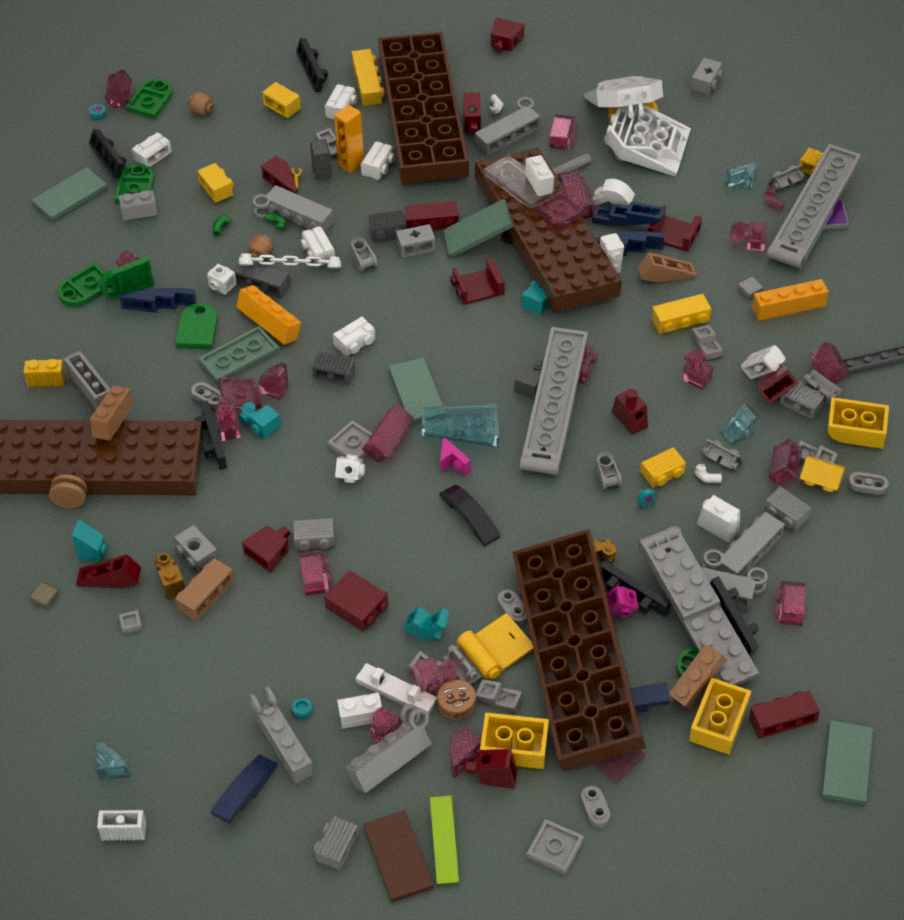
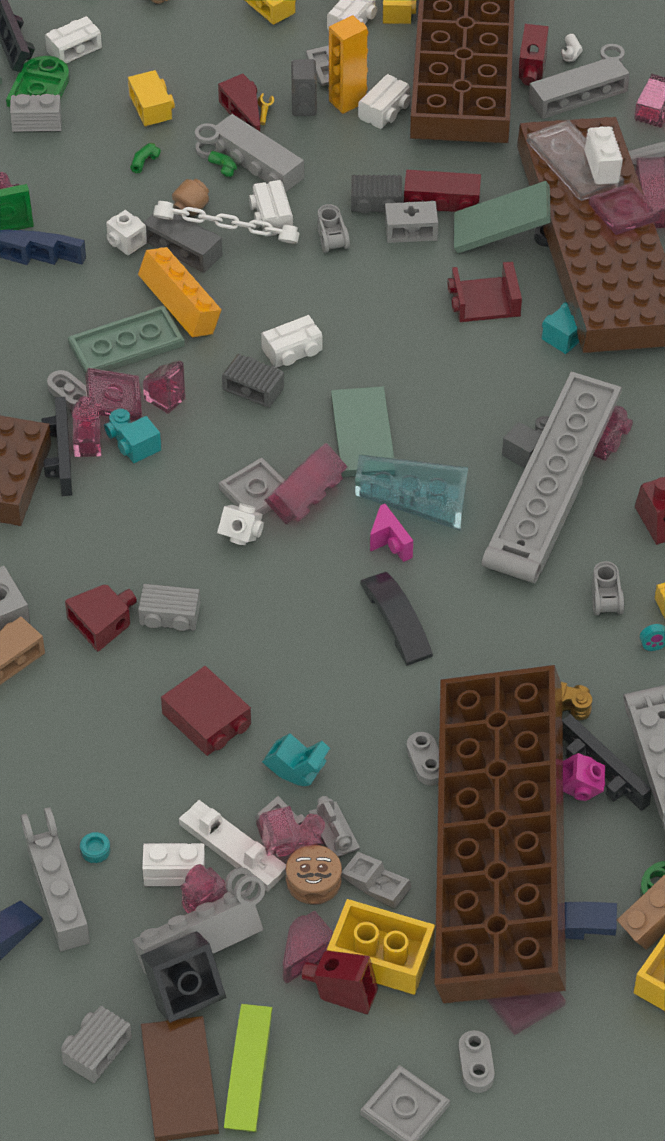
camera: 10 degrees right, 0 degrees up
(195, 329) = (77, 297): green tile -> none
(314, 572) = (157, 661): clear pink brick -> none
(386, 785) = (183, 976): none -> black brick
(495, 646) = (386, 810): yellow door -> none

